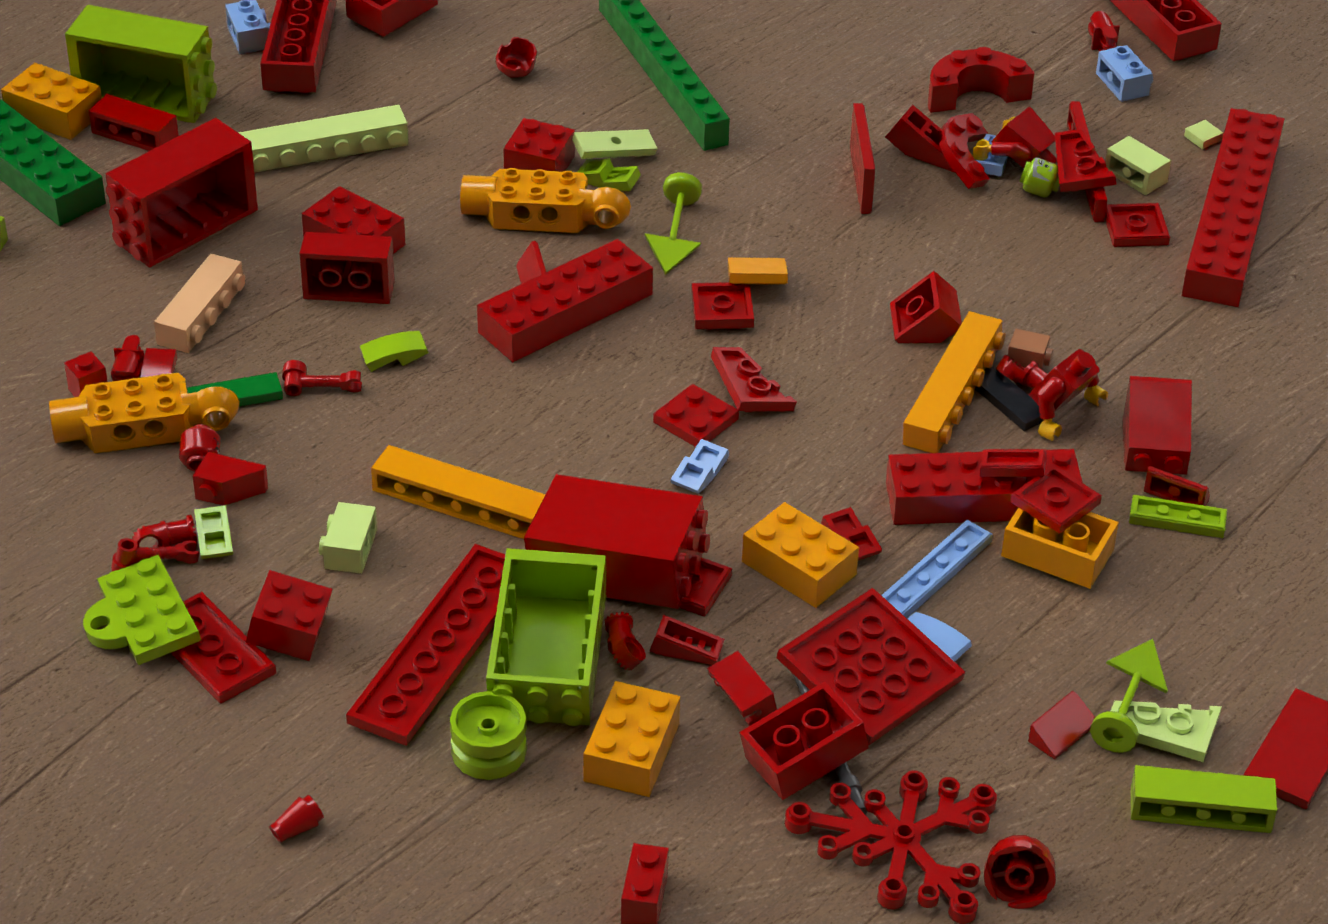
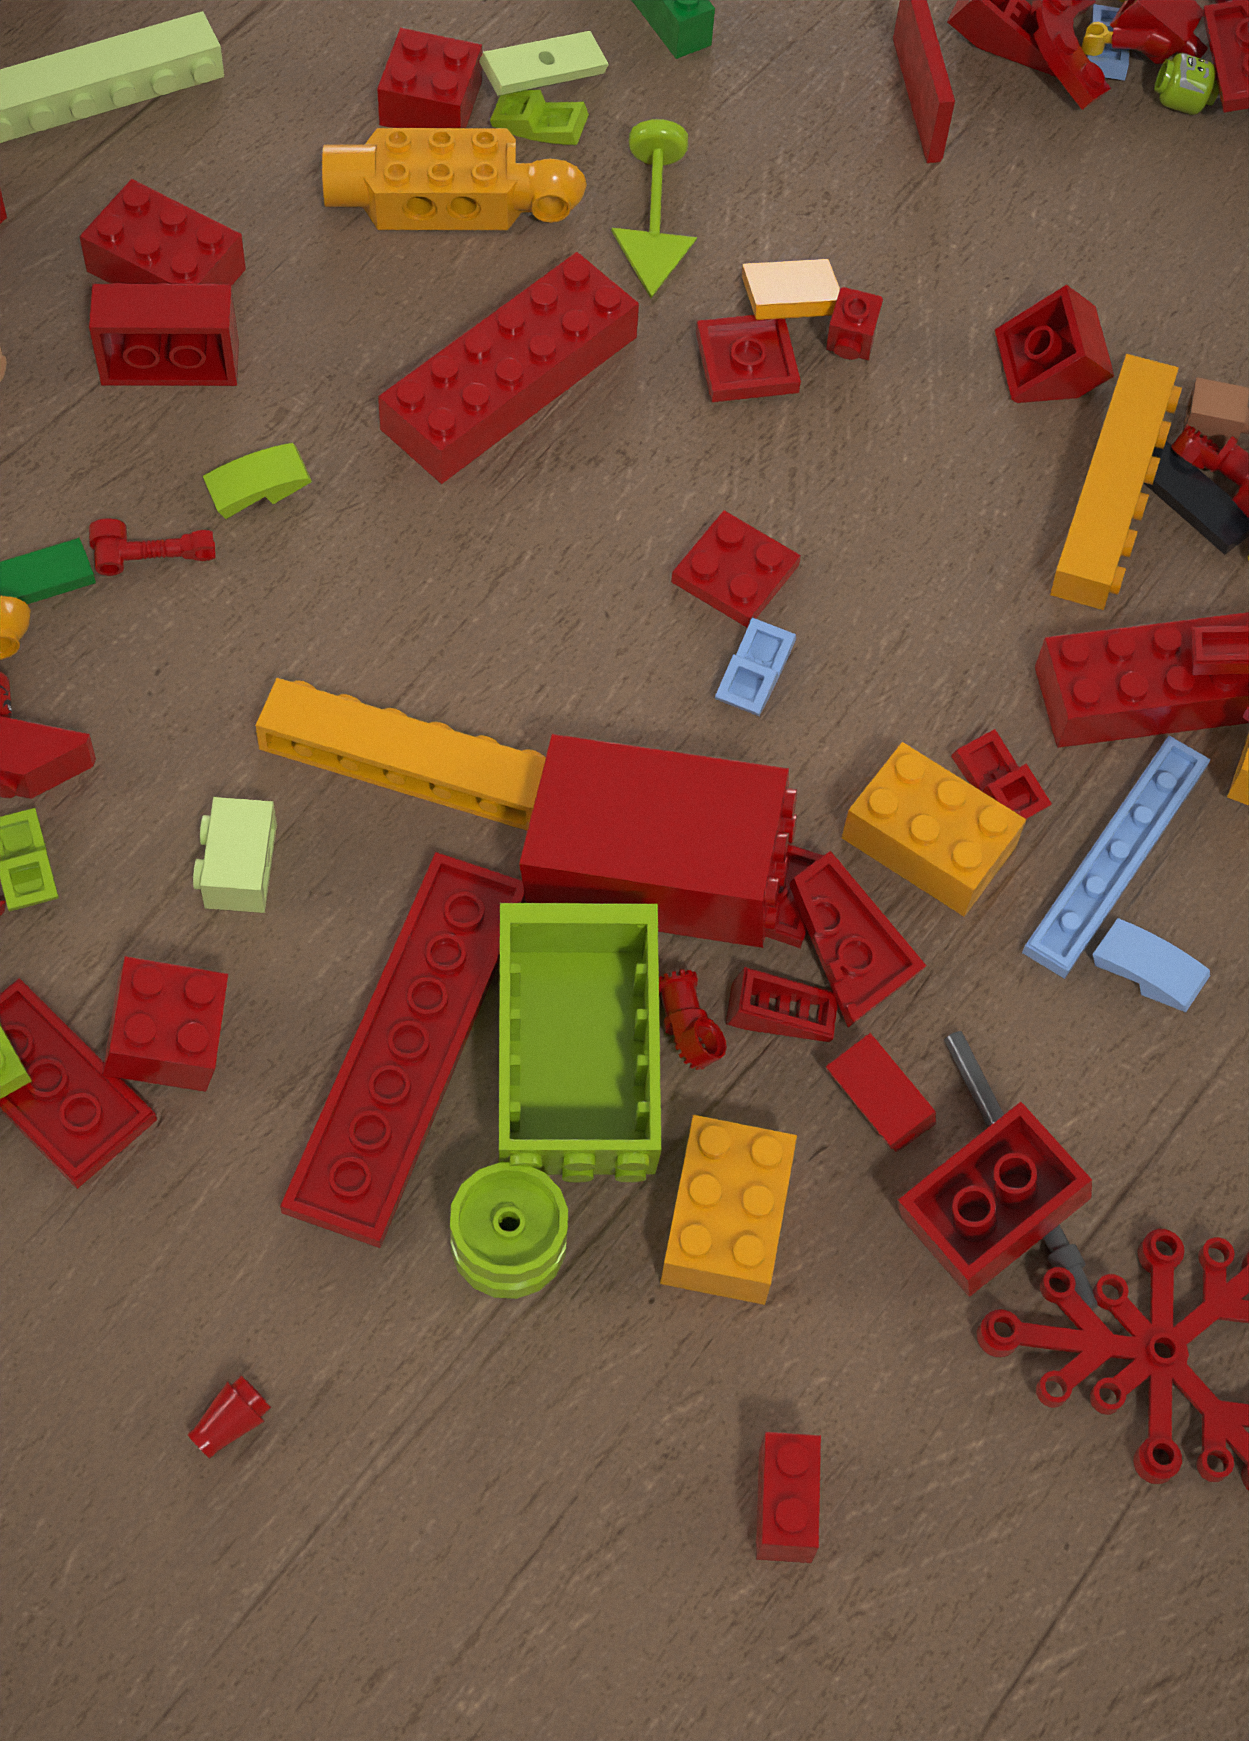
camera: 10 degrees left, 20 degrees up
(530, 263) = (447, 306): red slope -> none
(737, 607) = (853, 938): none -> red wing
(746, 383) = (804, 504): red wing -> none
(792, 289) = (854, 324): none -> red bracket
(872, 662) = (1069, 1032): red plate -> none

